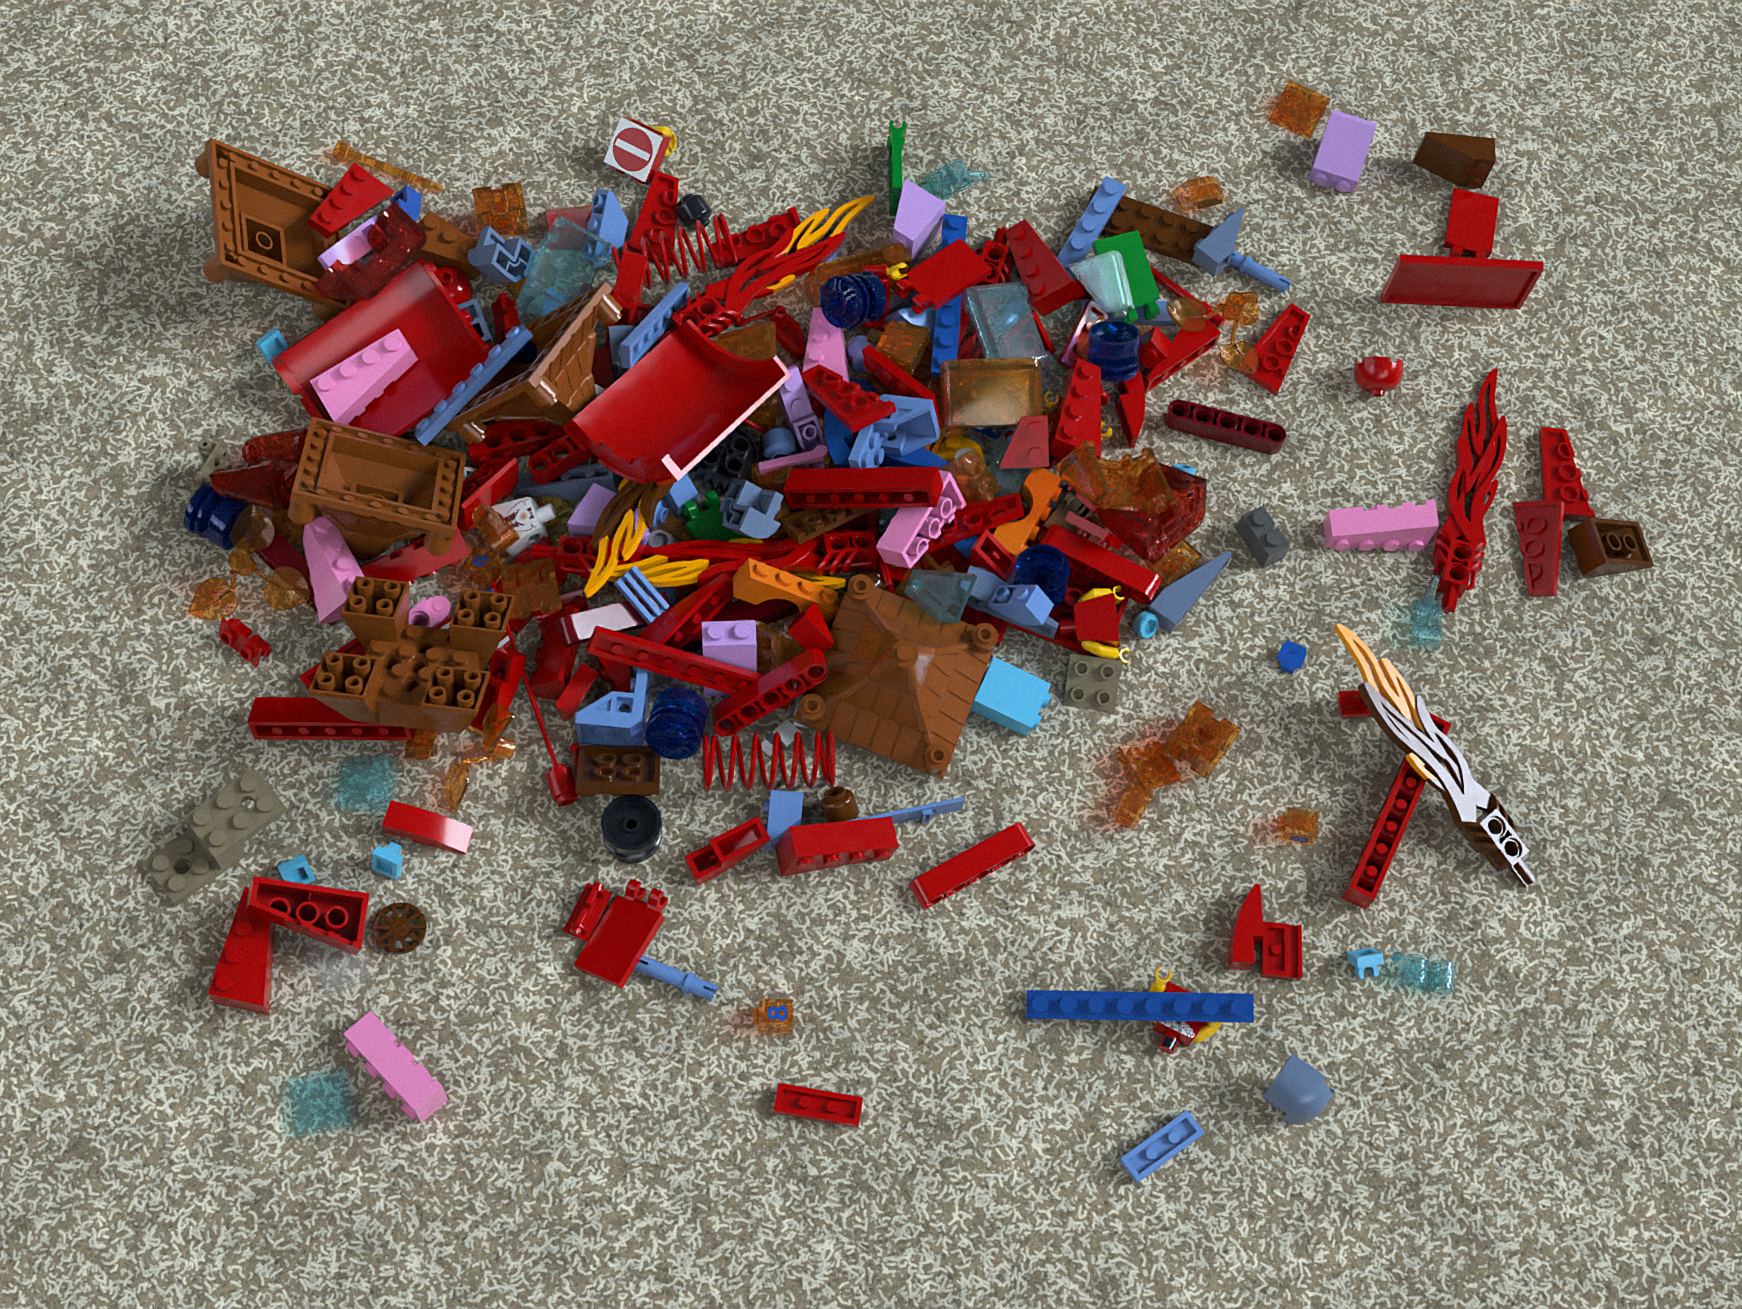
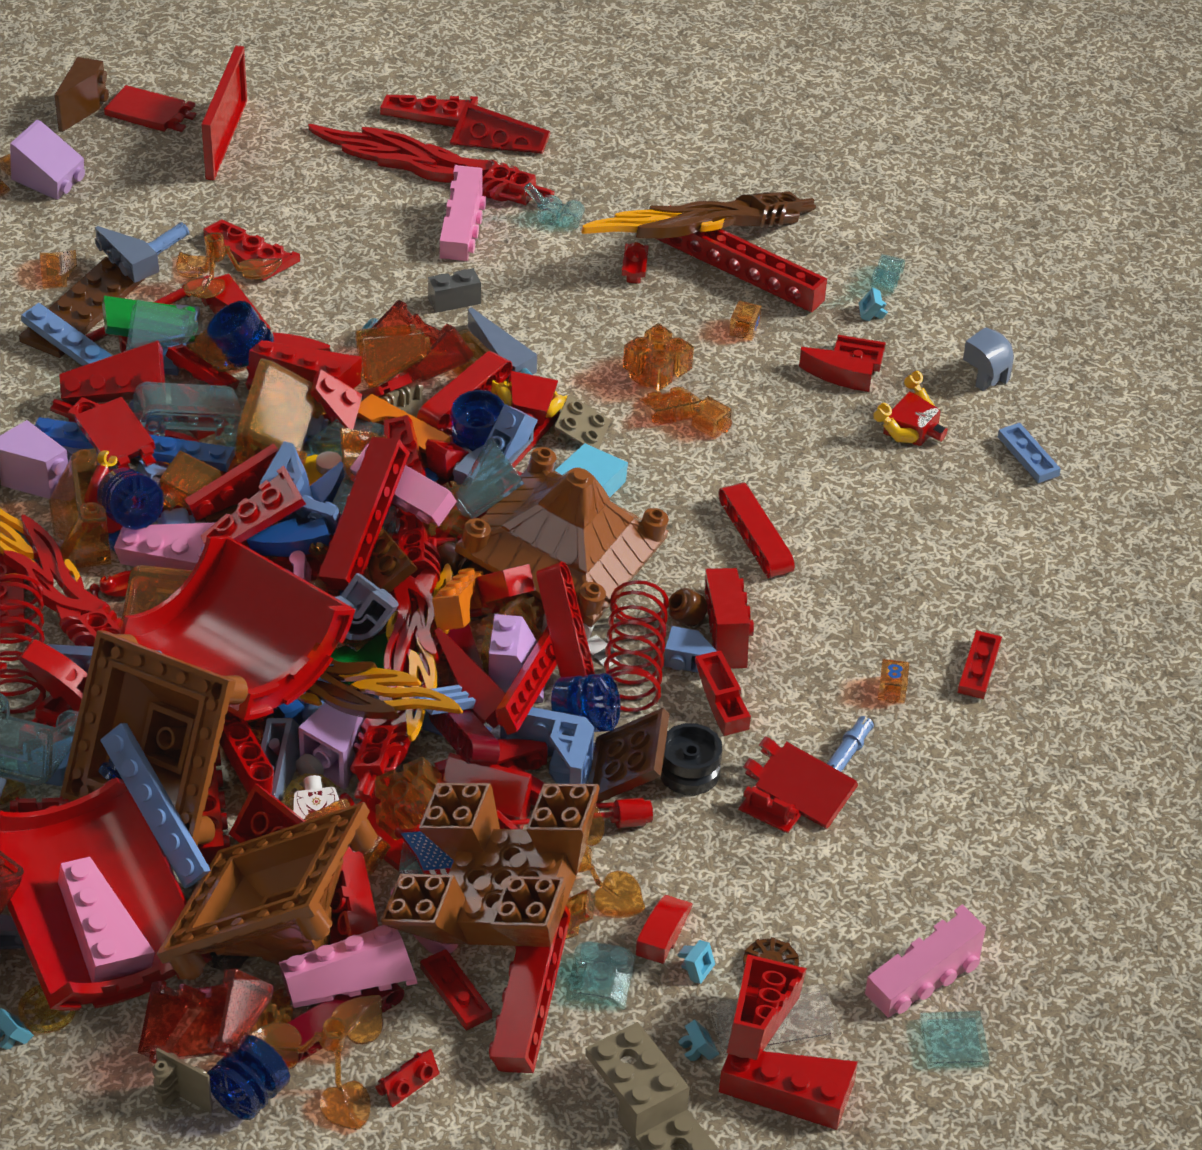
camera: 75 degrees left, 20 degrees down
(923, 812) = (699, 555): medium blue piece -> none
(1086, 529) = (439, 378): red plate -> none
(1140, 1006) = (908, 436): blue plate -> none
(1237, 426) = (328, 295): dark red beam -> none
(1291, 656) = (582, 297): blue piece -> none
(1378, 374) = (302, 189): red cylinder -> none
(1609, 547) = (510, 97): reddish brown slope -> none

